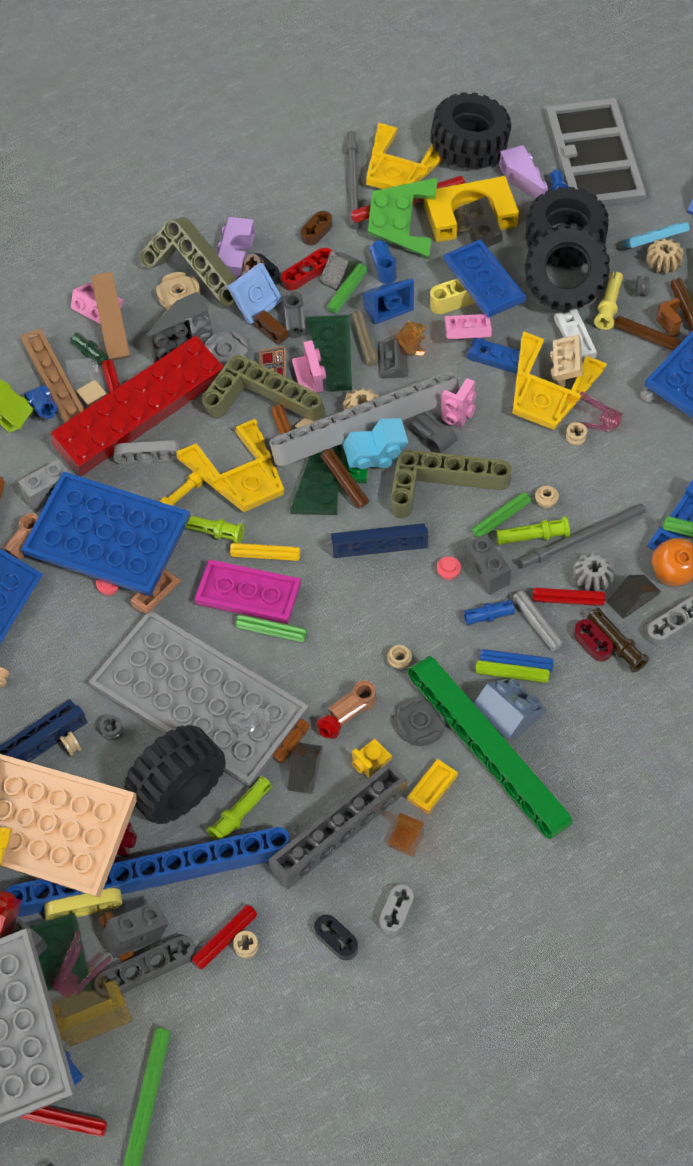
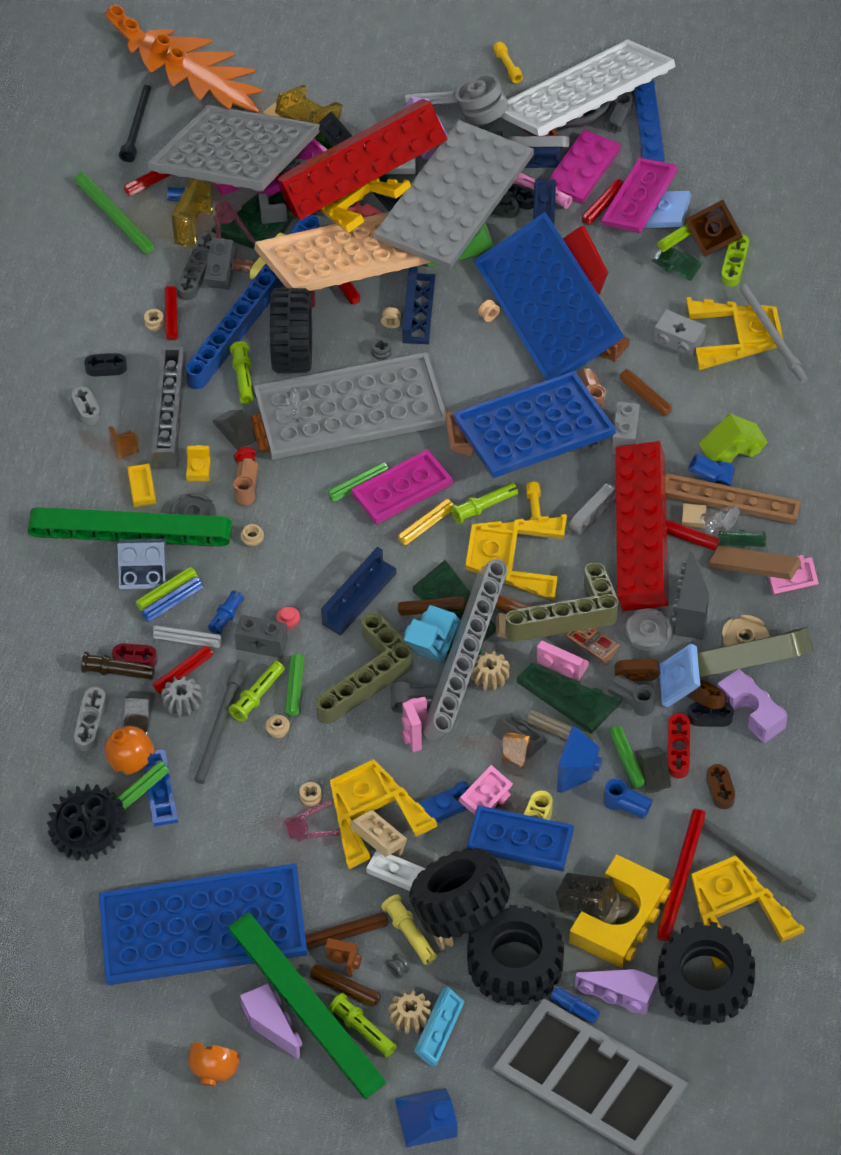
camera: 130 degrees right, 5 degrees down
(392, 215) = (662, 833): bright green wing -> none

